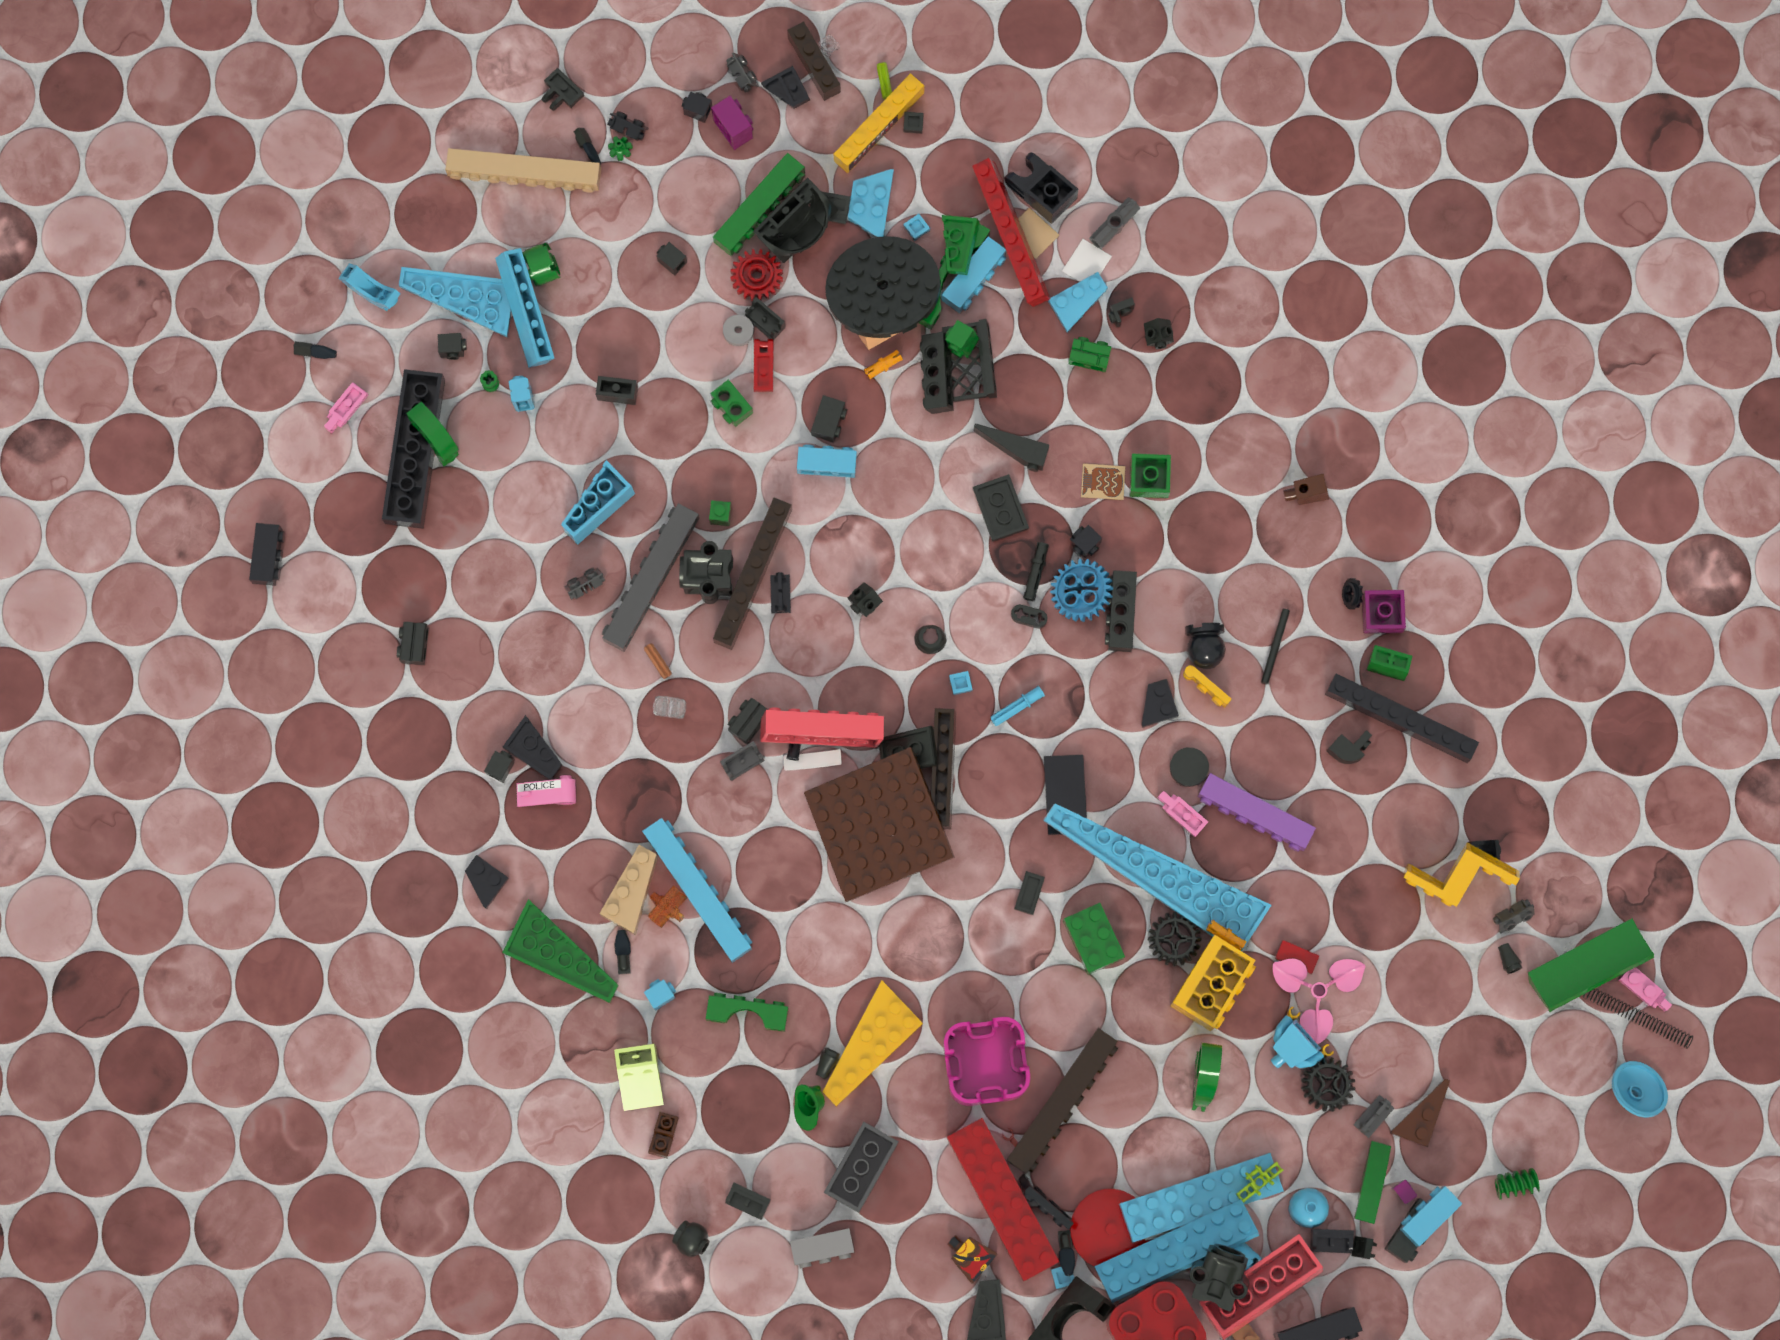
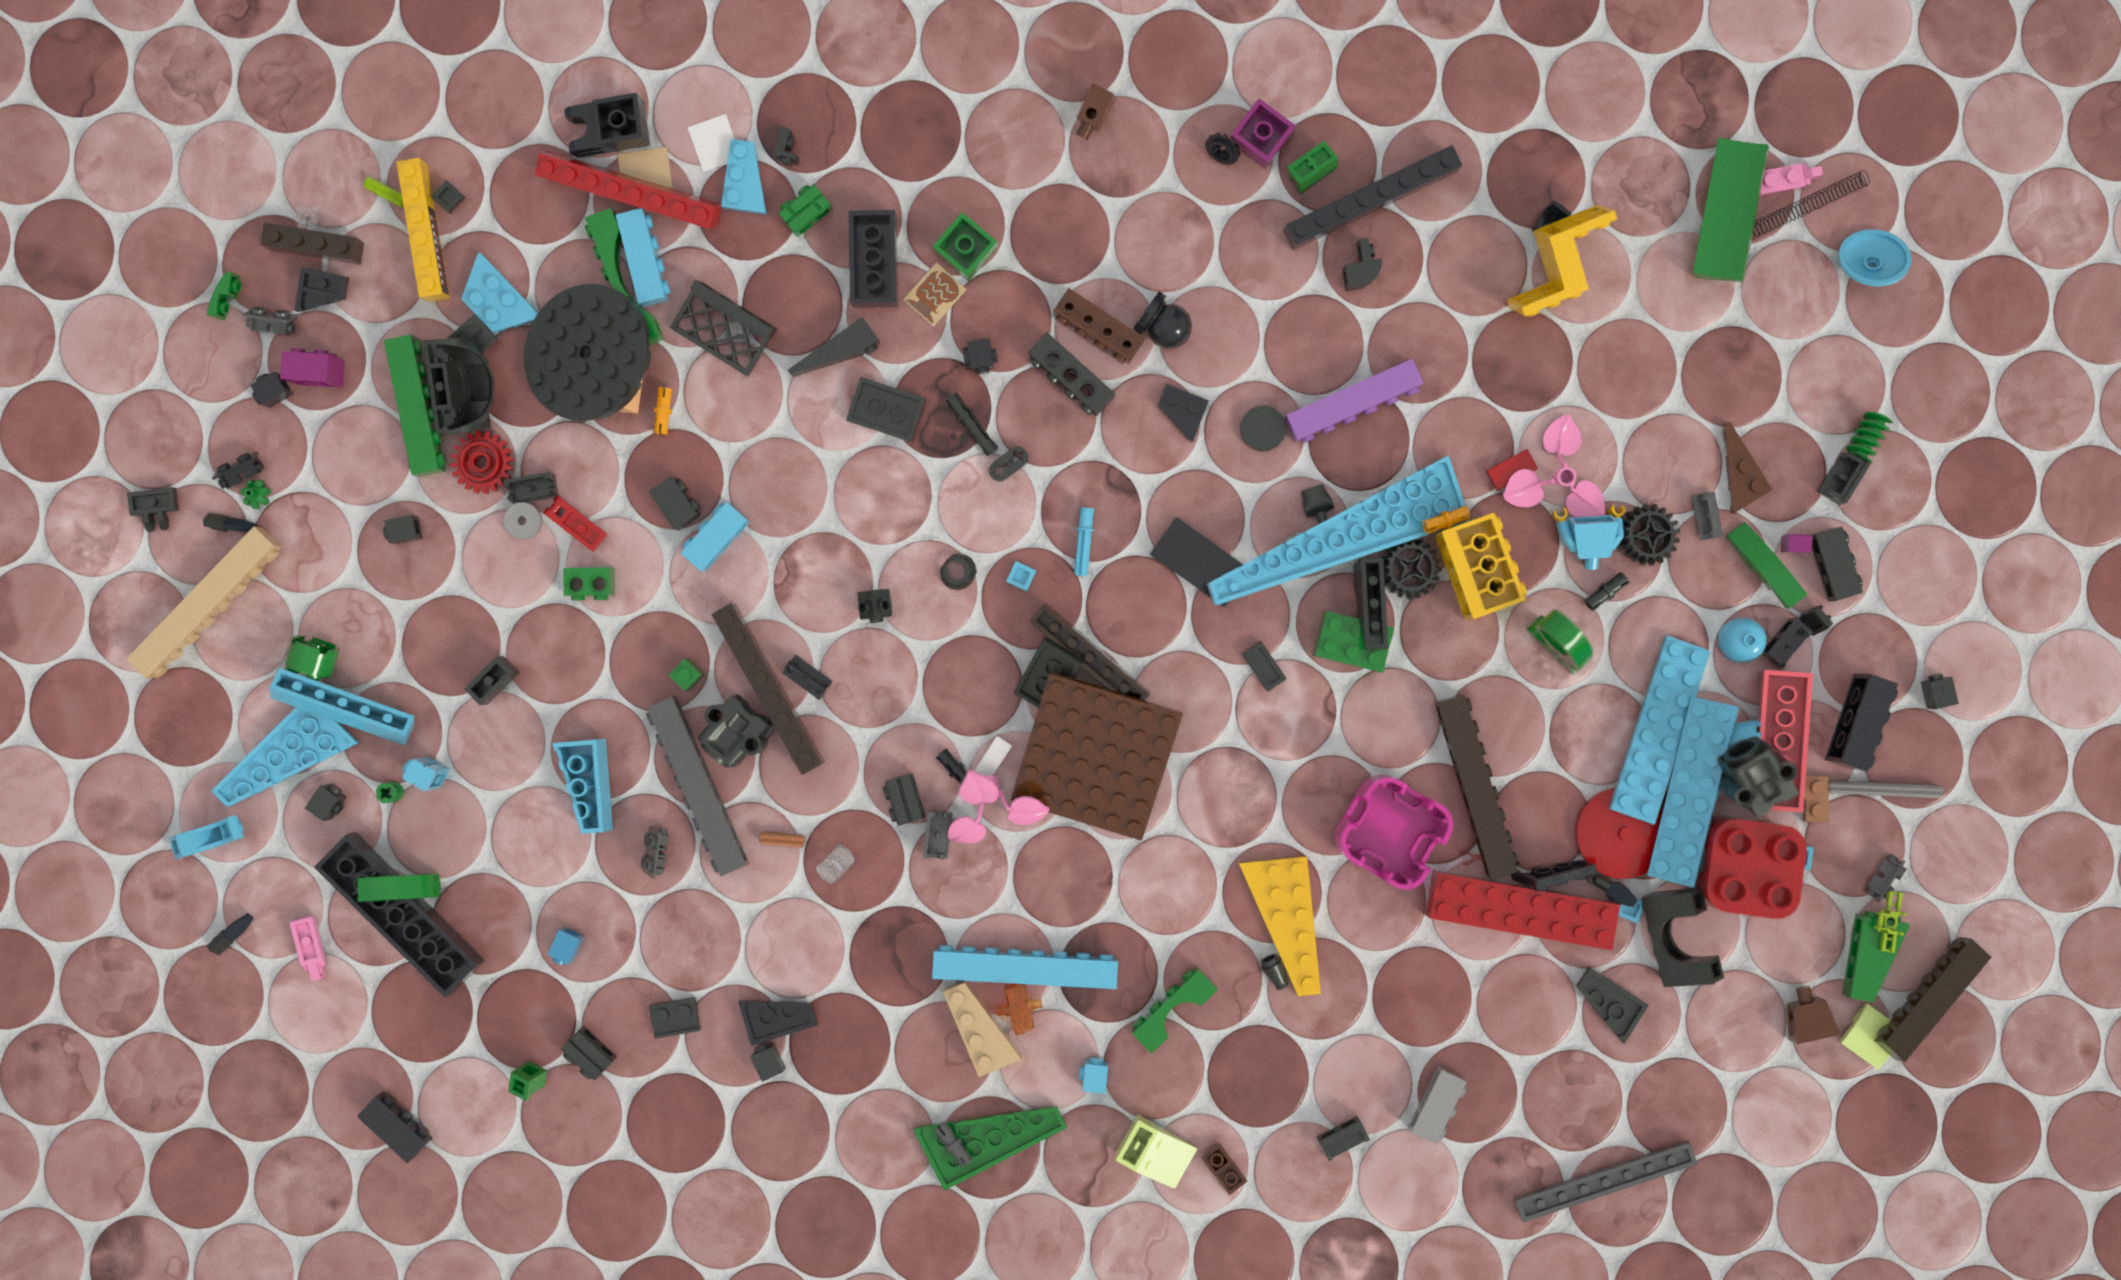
camera: 55 degrees left, 10 degrees up
(365, 615) = (527, 1080): none -> green brick
(474, 573) = (565, 946): none -> dark azure brick
(481, 682) = (675, 1017): none -> pearl dark grey plate
(485, 880) = (864, 1153): black wing -> none
(539, 933) = (953, 1144): none -> dark grey pin
(556, 791) = (826, 1036): bright pink door -> none
(622, 950) = (1028, 1078): piece -> none
(691, 1239) = (1339, 1218): pearl dark grey piece -> none
(742, 30) = (227, 287): none -> green slope
(797, 758) = (985, 789): none -> bright pink plant
(808, 1104) = (1300, 1019): green piece -> none
(822, 728) = (968, 739): coral brick -> none
(861, 1167) = (1395, 1015): dark grey brick -> none
(916, 227) = (553, 274): medium azure tile -> none
(943, 380) = (704, 354): pearl dark grey brick -> none
(960, 241) = (597, 243): green wing -> none
(961, 339) = (696, 319): green brick -> none
(971, 1257) = (1551, 977): torso -> none
(1081, 607) = (1039, 409): dark azure gear -> none
(1093, 422) = (873, 258): none -> black brick
(1106, 231) = (693, 72): dark grey piece -> none
(1129, 927) = (1371, 602): none -> pearl dark grey slope
(1158, 333) = (835, 129): pearl dark grey brick -> none
(1168, 603) = (1098, 326): none -> reddish brown brick
(1169, 840) = (1317, 502): none -> pearl dark grey piece
(1182, 813) = (1302, 468): bright pink hinge -> none
(1206, 686) = (1201, 353): yellow plate -> none
(1253, 1182) = (1684, 674): lime piece -> none
(1266, 1086) = (1606, 591): none -> pearl dark grey pin
(1275, 646) = (1214, 260): pearl dark grey bar -> none
(1430, 1215) = (1842, 539): medium azure brick -> none
(1475, 1189) = (1843, 478): none -> pearl dark grey hinge
(1510, 961) = (1665, 279): pearl dark grey cone -> none
(1522, 911) = (1631, 234): dark grey hinge -> none

